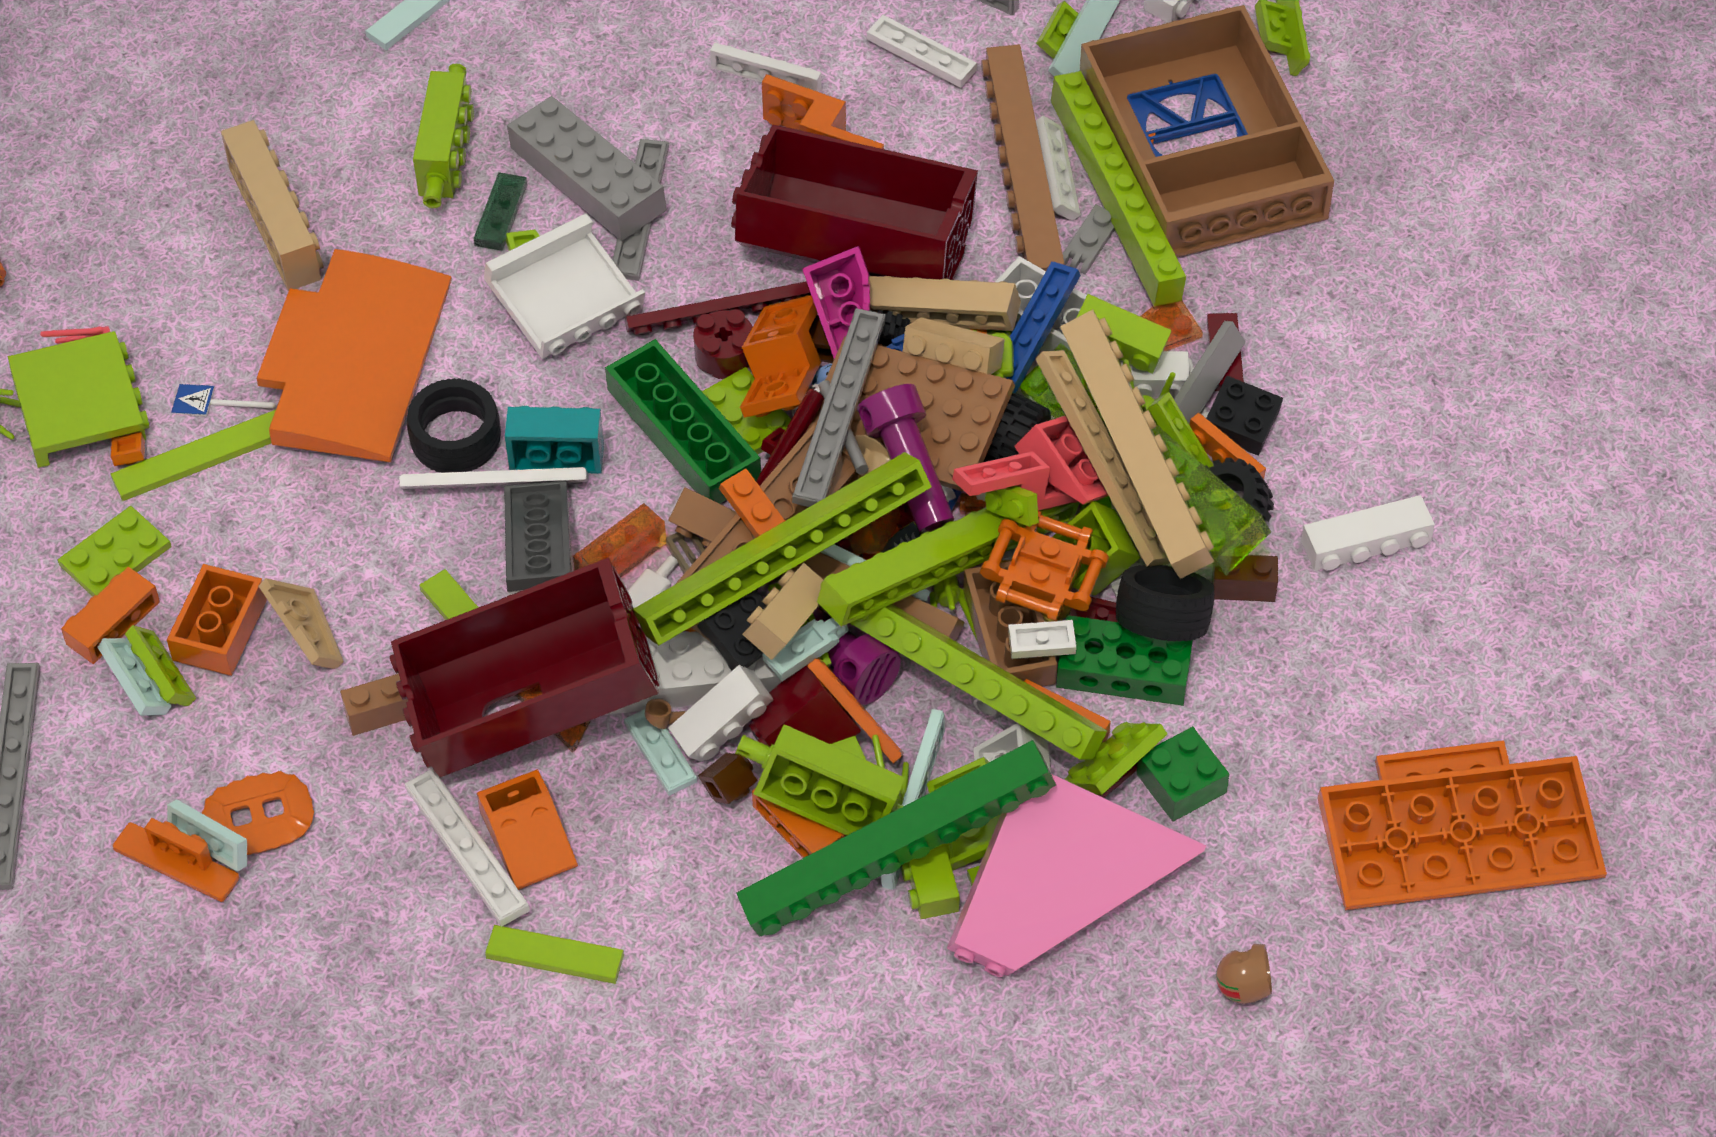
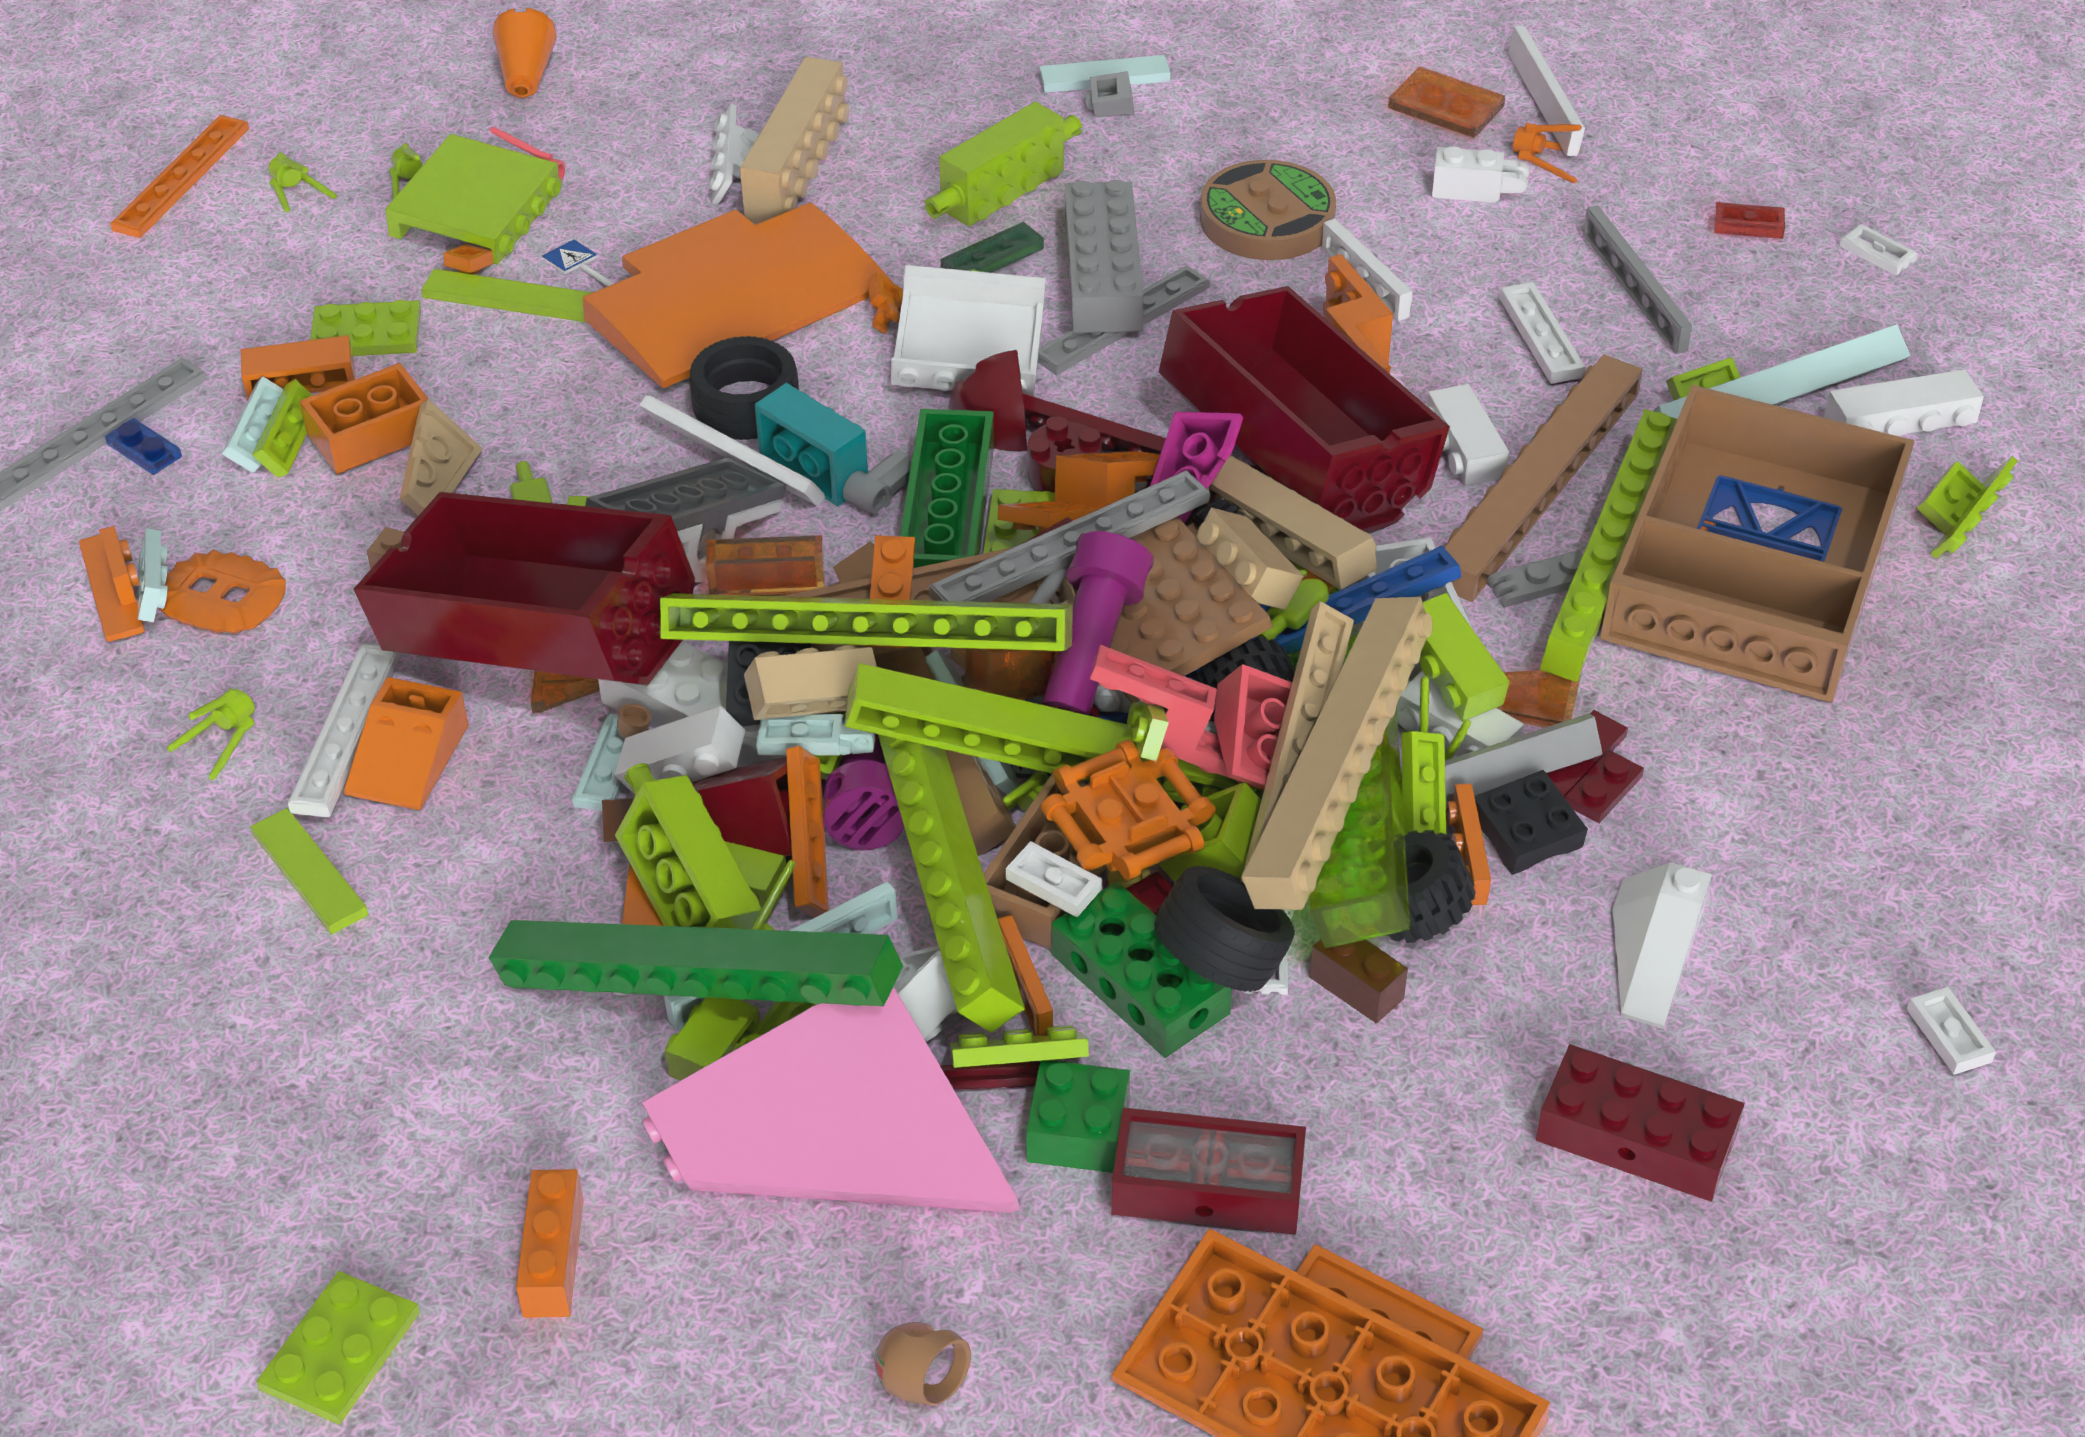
camera: 40 degrees right, 10 degrees down
(63, 748) = (143, 446): none -> clear blue plate
(224, 242) = (731, 148): none -> white bracket
(376, 891) = (230, 710): none -> lime plant
(389, 602) = (528, 487): none -> lime piece
(448, 19) = (1110, 95): none -> light grey brick
(468, 293) = (886, 299): none -> orange plate
(618, 440) = (876, 488): none -> light grey piece
(634, 325) = (997, 389): none -> dark red brick
(651, 59) = (1266, 209): none -> medium nougat piece
(941, 147) = (1472, 441): none -> white brick
(976, 1062) = (550, 1243): none -> orange brick
(1058, 168) = (1571, 497): white plate -> none
(1258, 361) = (1604, 786): none -> dark red plate
(1287, 754) = (1208, 1170): none -> brick
(1367, 533) = (1544, 1014): white brick -> none
(1372, 436) = (1654, 932): none -> white wedge
(1472, 563) = (1640, 1122): none -> dark red brick
(1572, 394) = (1951, 1030): none -> white plate

